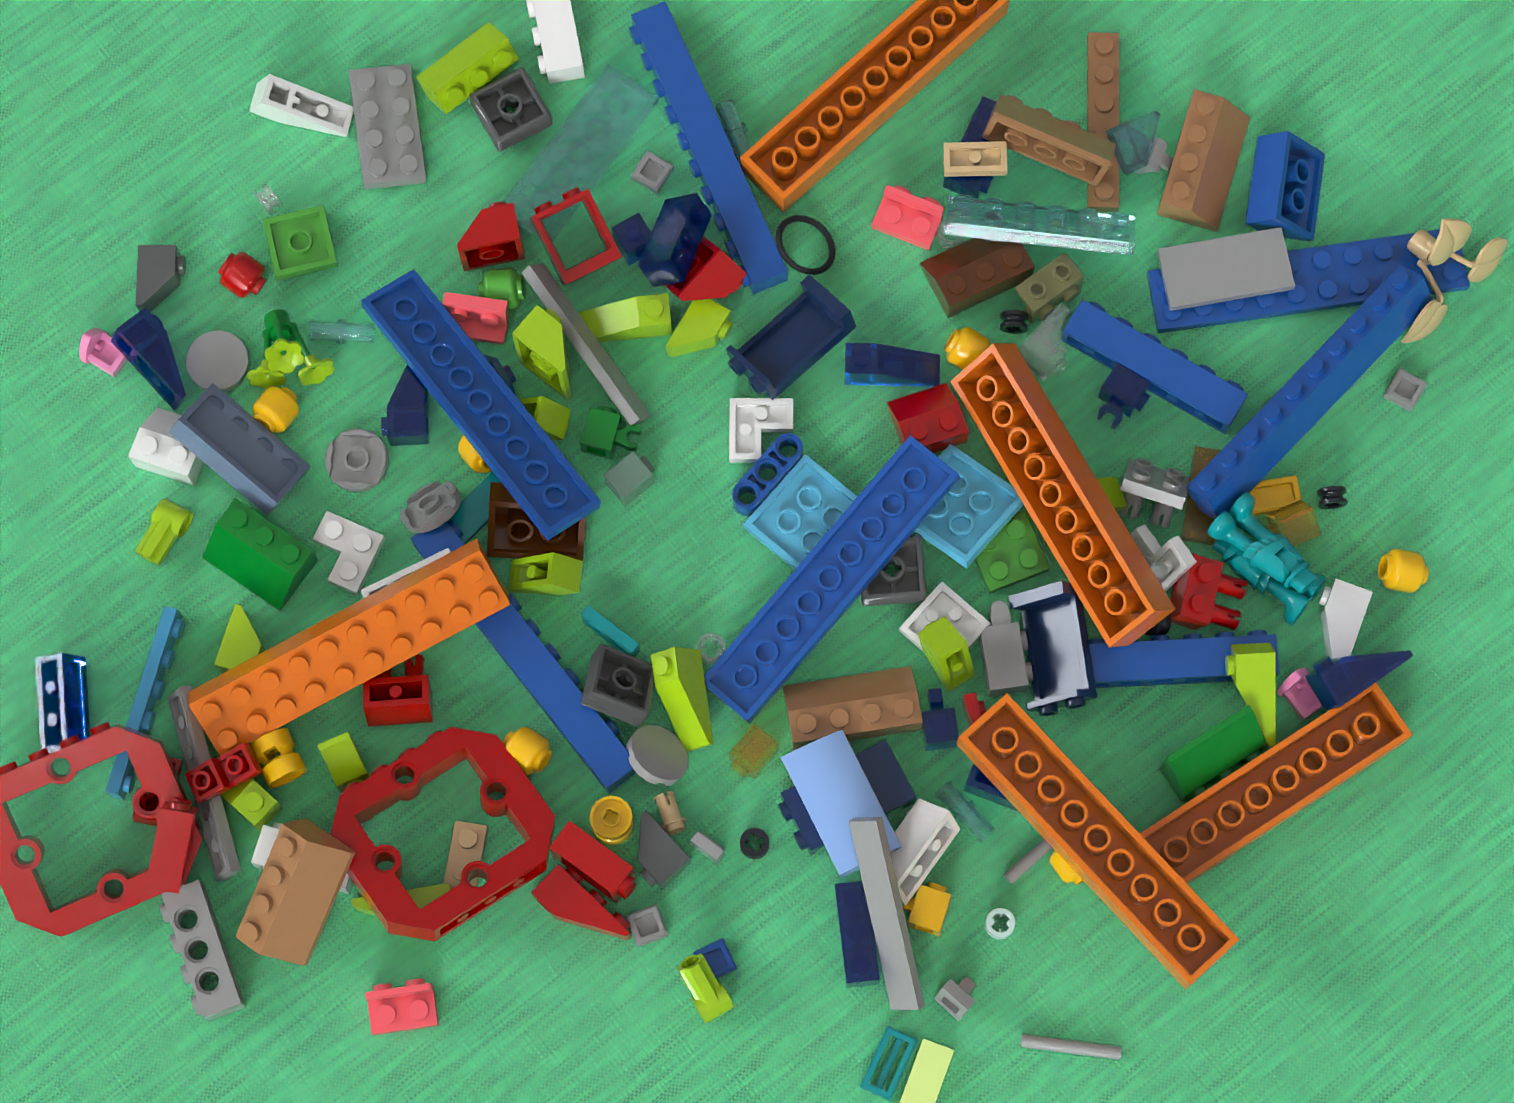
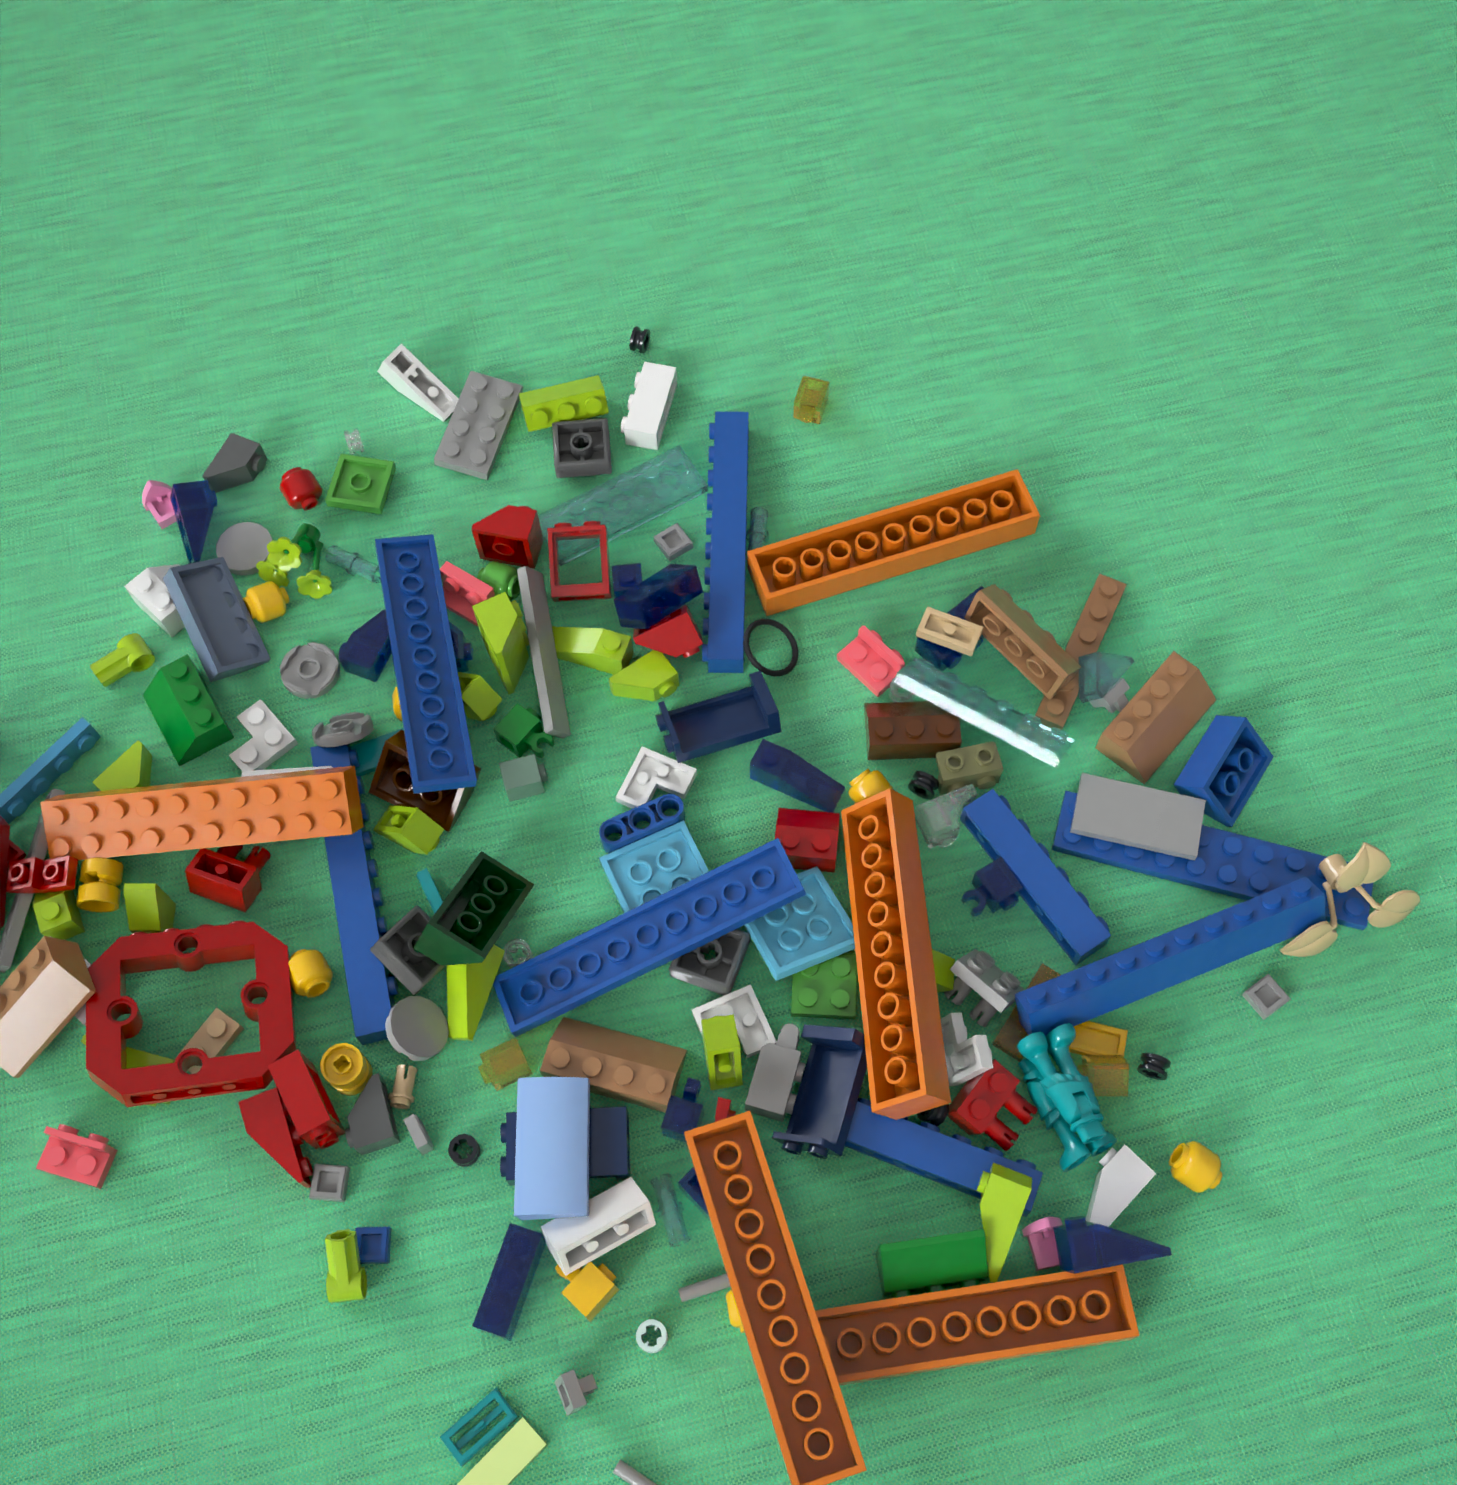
camera: 25 degrees right, 10 degrees down
(662, 627) = (474, 913): none -> dark green slope
(886, 913) = (540, 1275): light grey tile -> none

